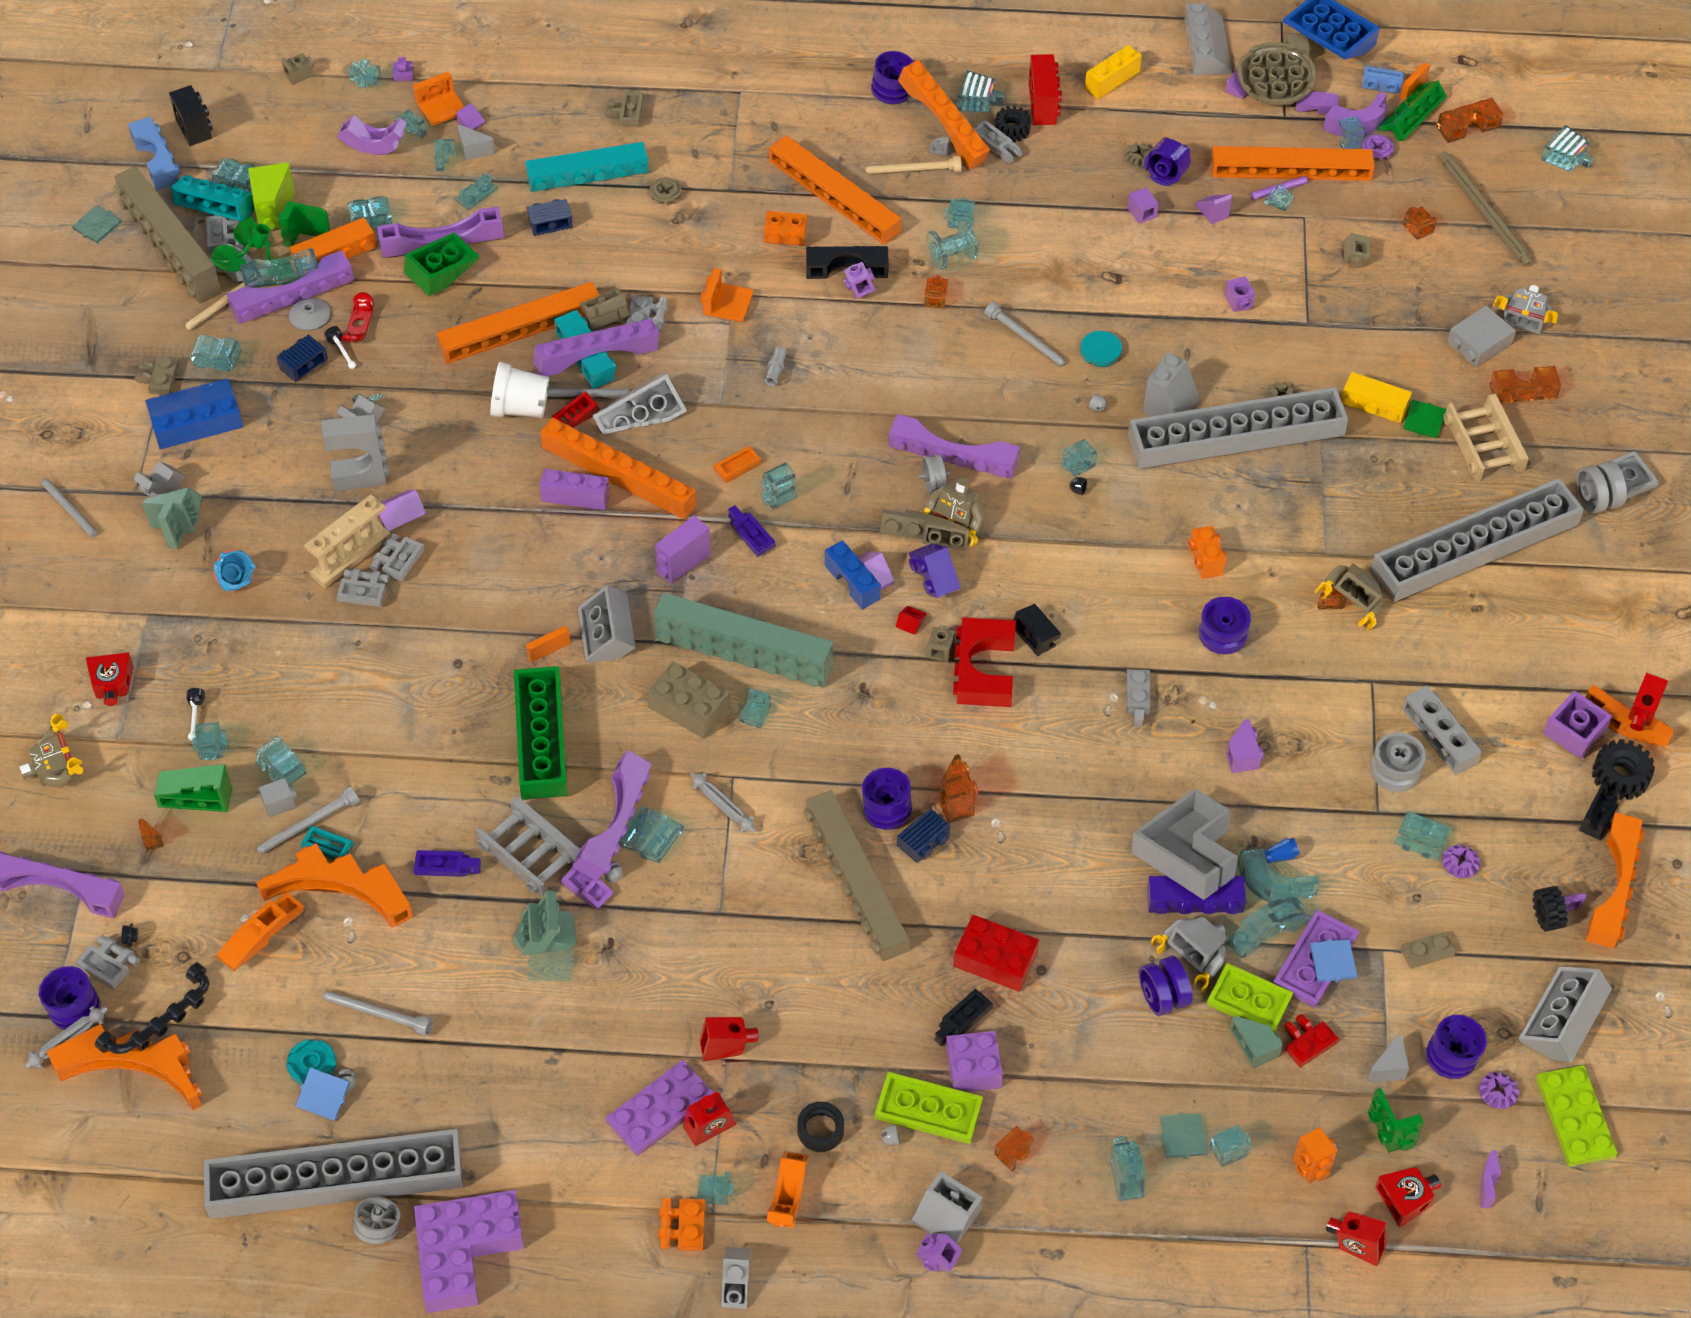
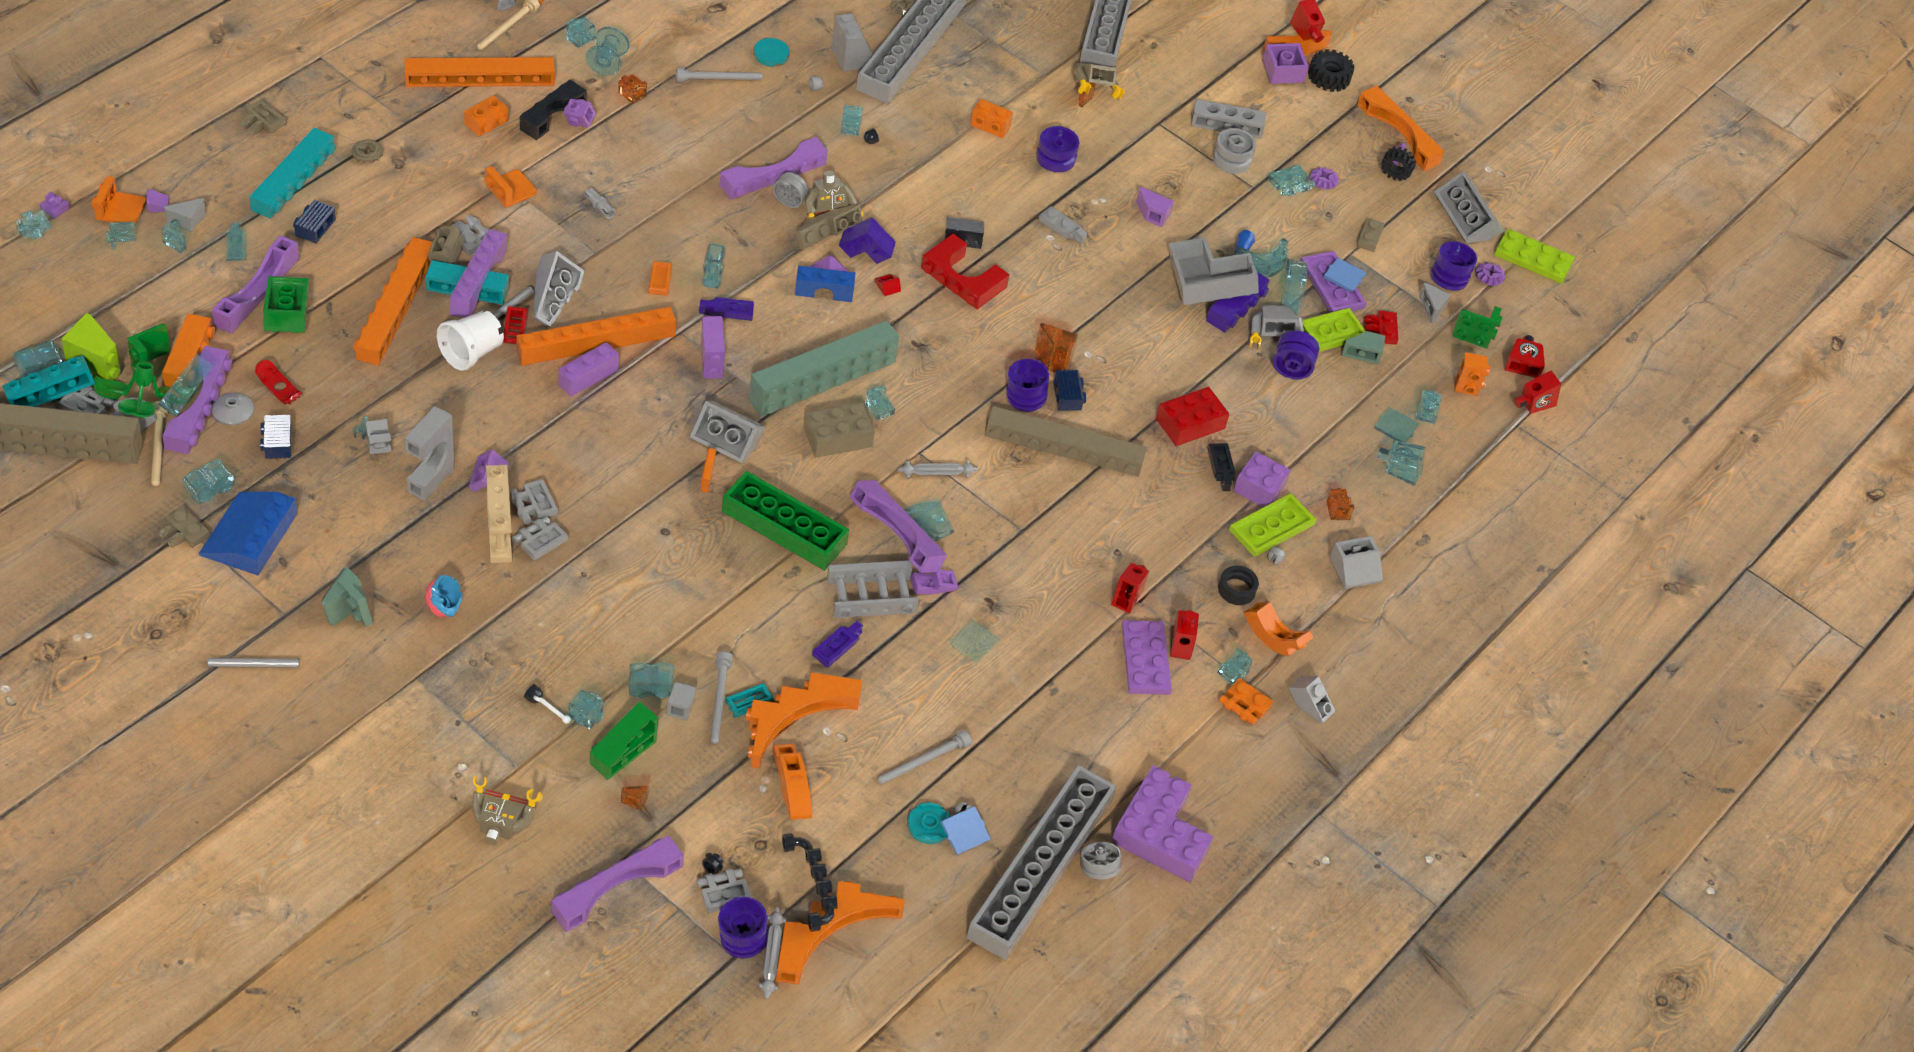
camera: 60 degrees left, 5 degrees down
(110, 676) = (457, 733): red torso -> none
(162, 480) = (300, 589): light grey brick -> none
(333, 336) = (278, 406): hinge -> none
(371, 139) = (108, 263): medium lavender arch -> none
(374, 210) = (175, 312): clear light blue brick -> none
(545, 927) = (949, 622): sand green piece -> none
(938, 1252) = (1384, 587): medium lavender brick -> none
(940, 639) = (926, 282): dark tan brick -> none
(1489, 1177) = (1542, 315): medium lavender slope -> none
(1600, 813) = (1348, 101): black hinge -> none

